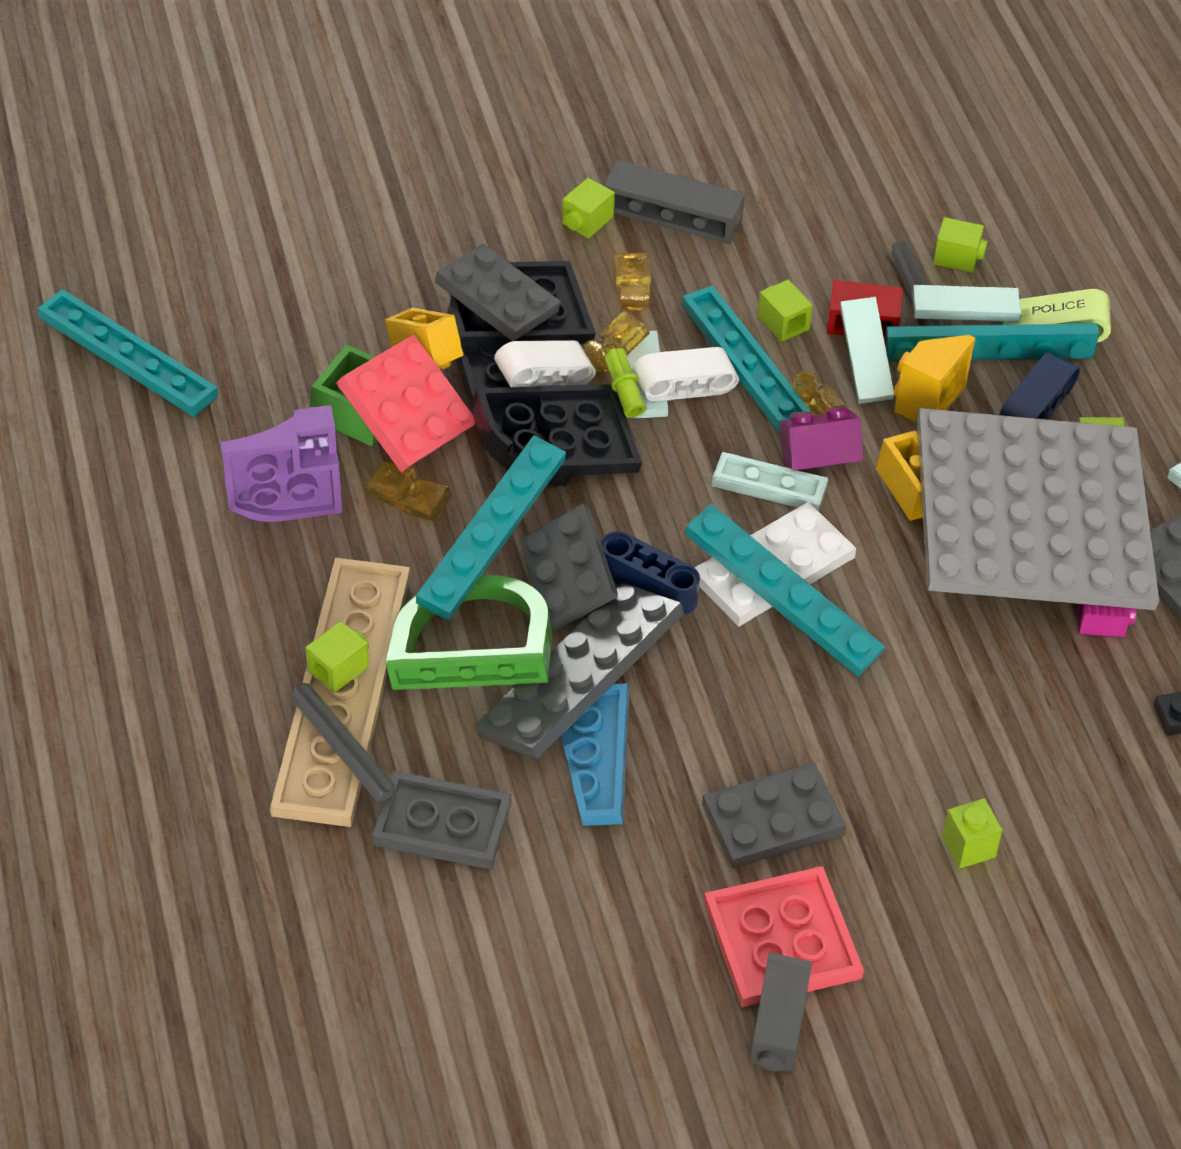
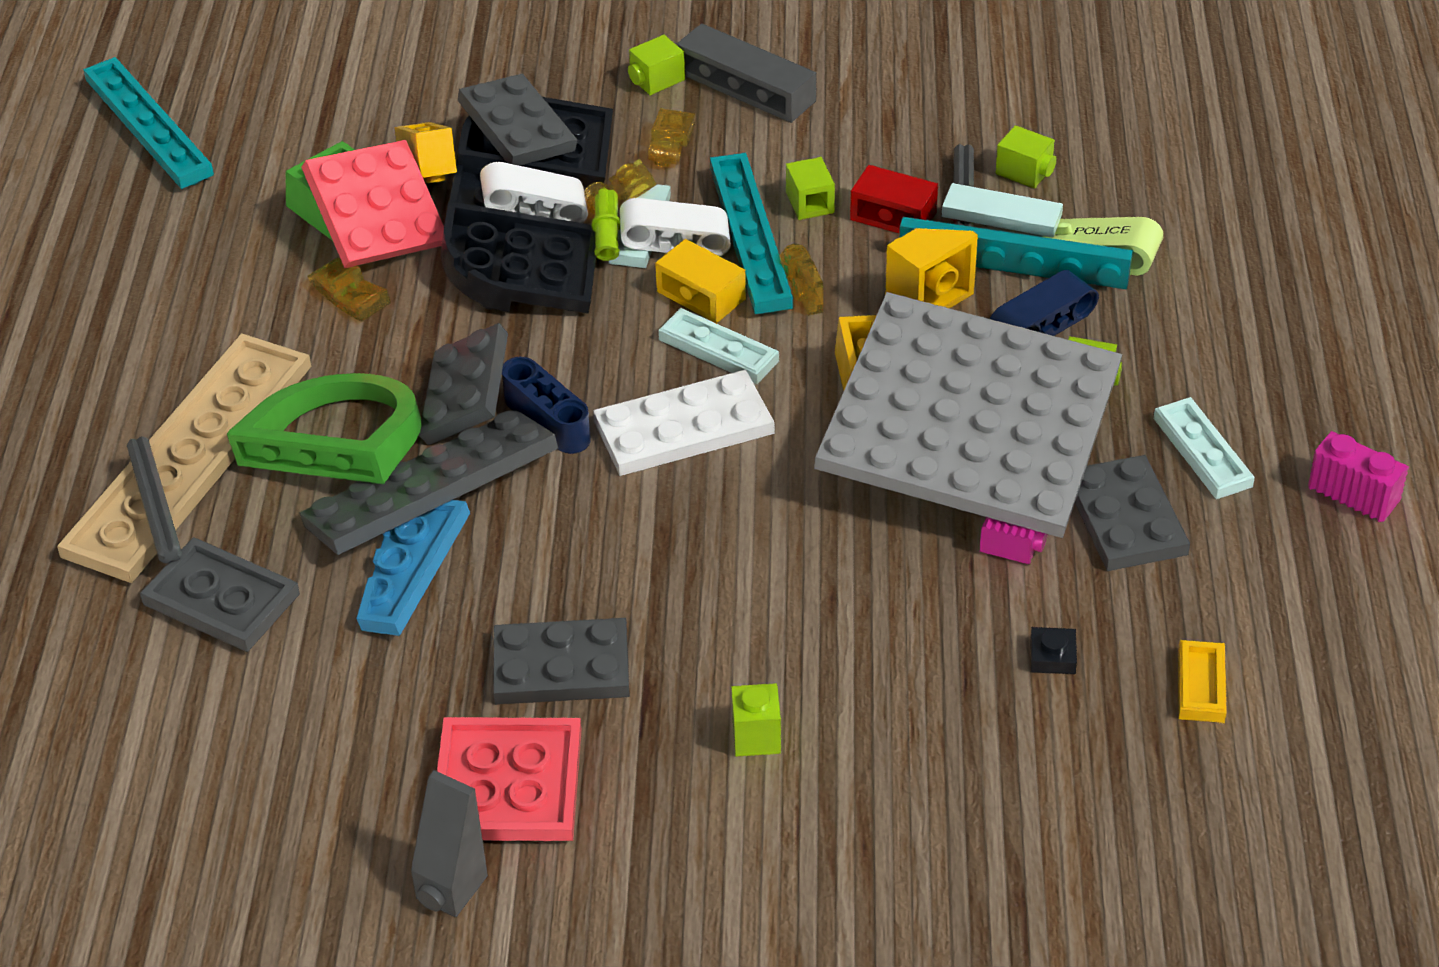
camera: 20 degrees right, 5 degrees down
(285, 469) = (220, 239): medium lavender slope -> none
(337, 656) = (188, 418): lime brick -> none
(490, 528) = (398, 330): teal plate -> none
(730, 422) = (700, 280): none -> yellow brick
(784, 590) = (674, 446): teal plate -> none
(821, 438) = (783, 310): magenta brick -> none
(867, 350) = (872, 234): light aqua tile -> none

